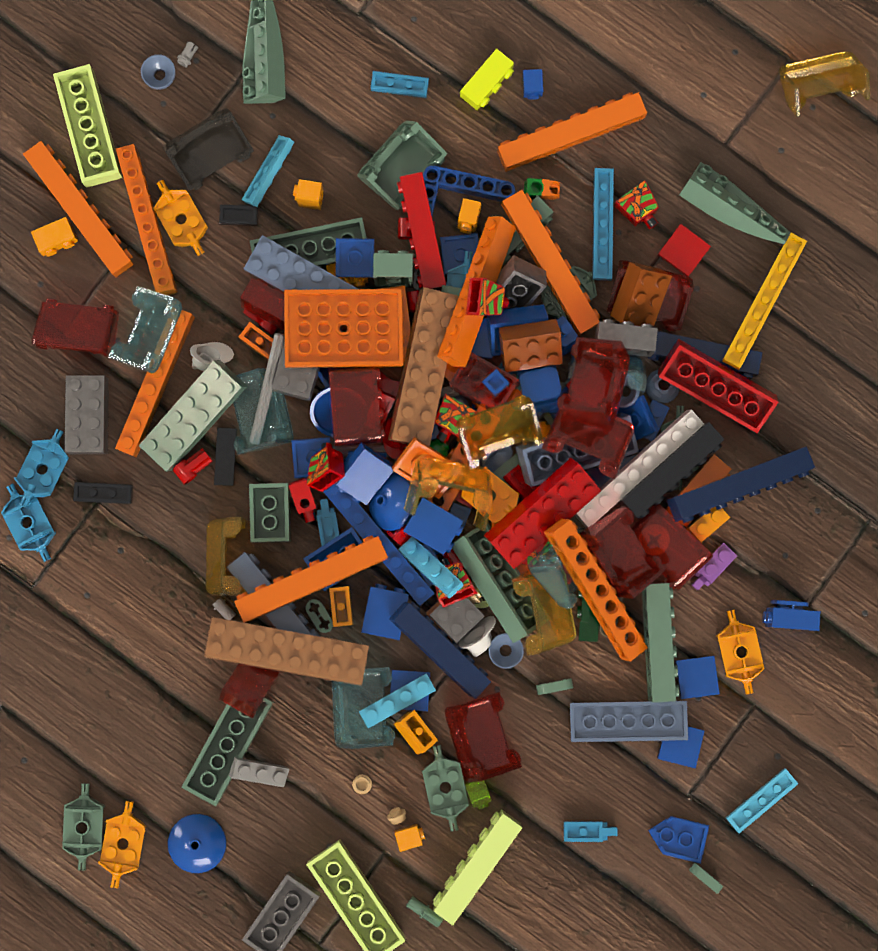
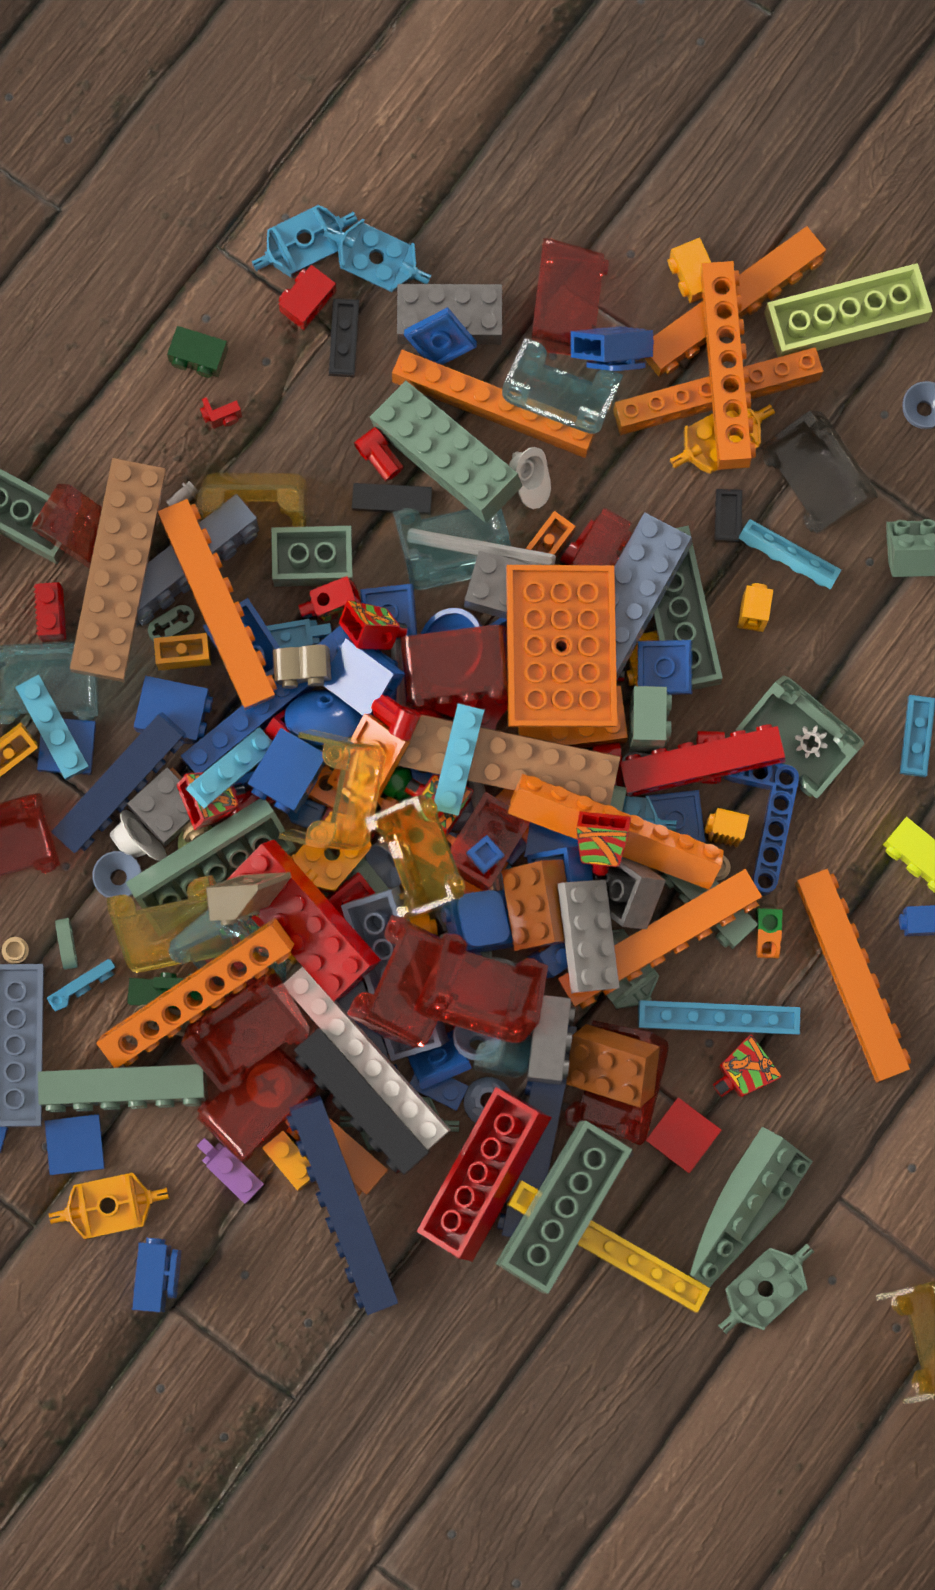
camera: 90 degrees right, 5 degrees down
(63, 210) = (713, 277): none -> orange brick
(72, 520) = (307, 296): none -> red brick
(106, 420) = (440, 337): none -> blue tile
(114, 600) = (197, 352): none -> dark green brick
(115, 293) = (612, 347): none -> blue brick
(163, 580) = (225, 415): none -> red bracket
(311, 704) = (50, 612): none -> red brick
(355, 517) = (302, 665): none -> dark tan brick
(398, 443) = (399, 719): none -> red piece
(409, 153) = (804, 744): none -> white gear
(426, 402) = (458, 759): none -> medium azure plate
(530, 553) = (243, 896): none -> dark tan slope
(553, 310) = (588, 936): none -> light grey plate
(559, 723) = (15, 950): none -> tan plate
(583, 674) = (81, 985): none -> dark azure hinge
(743, 328) = (563, 1206): none -> sand green brick
(784, 180) = (787, 1280): none -> sand green plate

